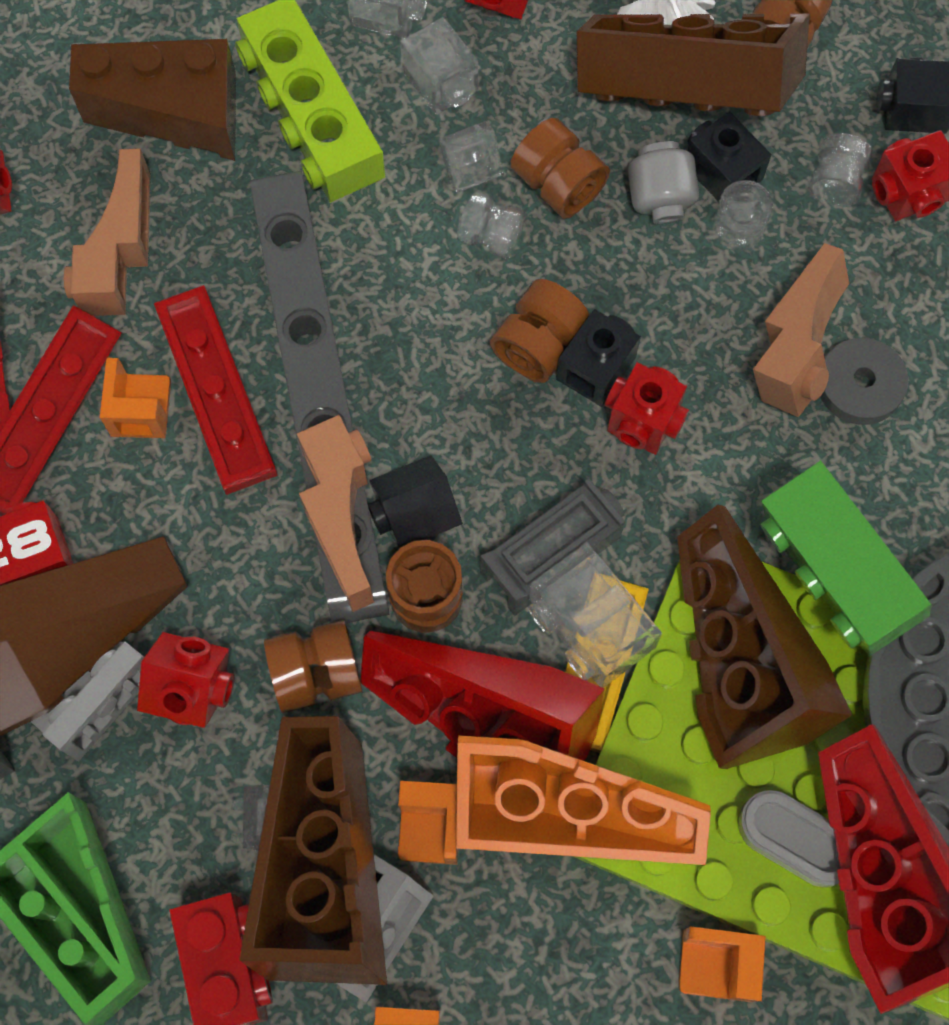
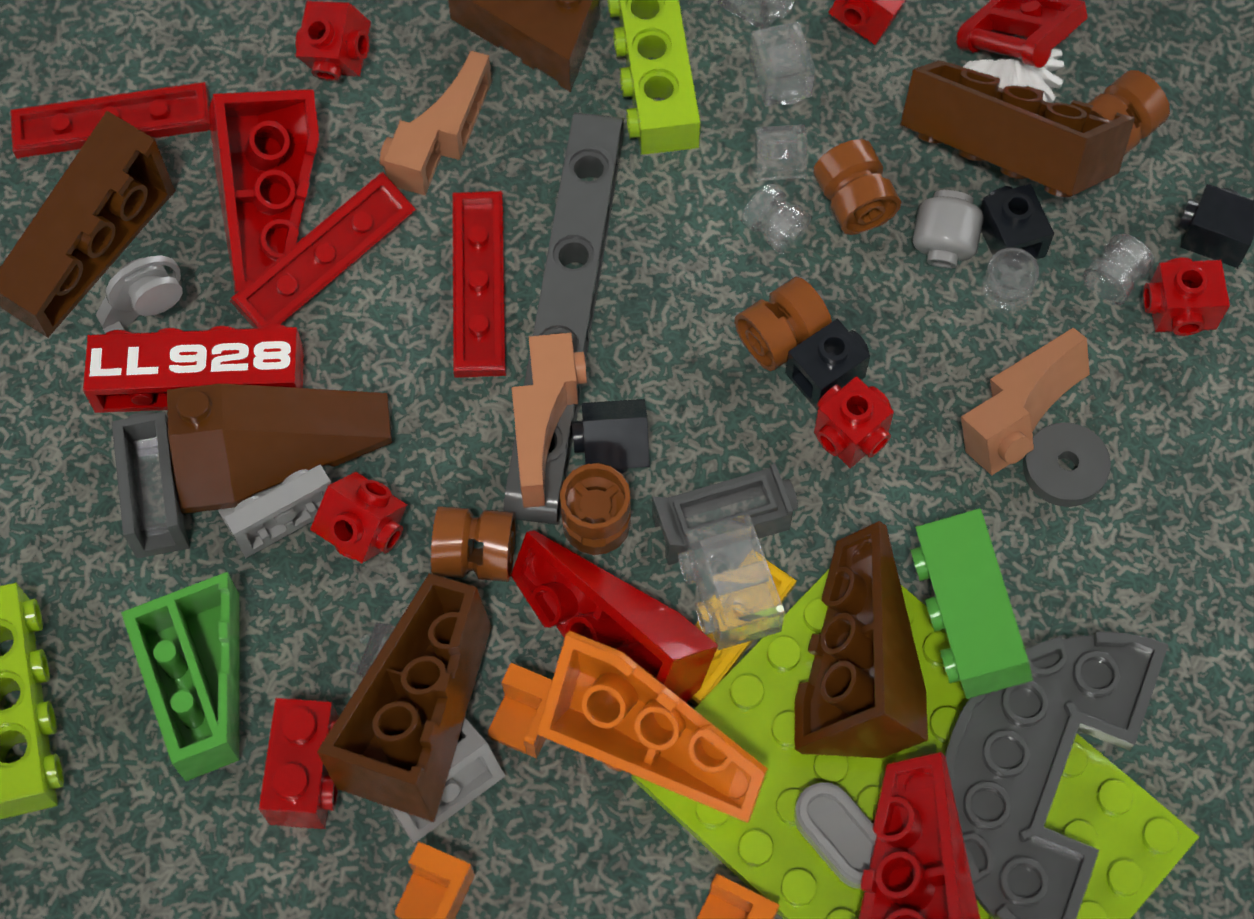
camera: 20 degrees right, 5 degrees down
(134, 402) = (403, 272): orange panel -> none

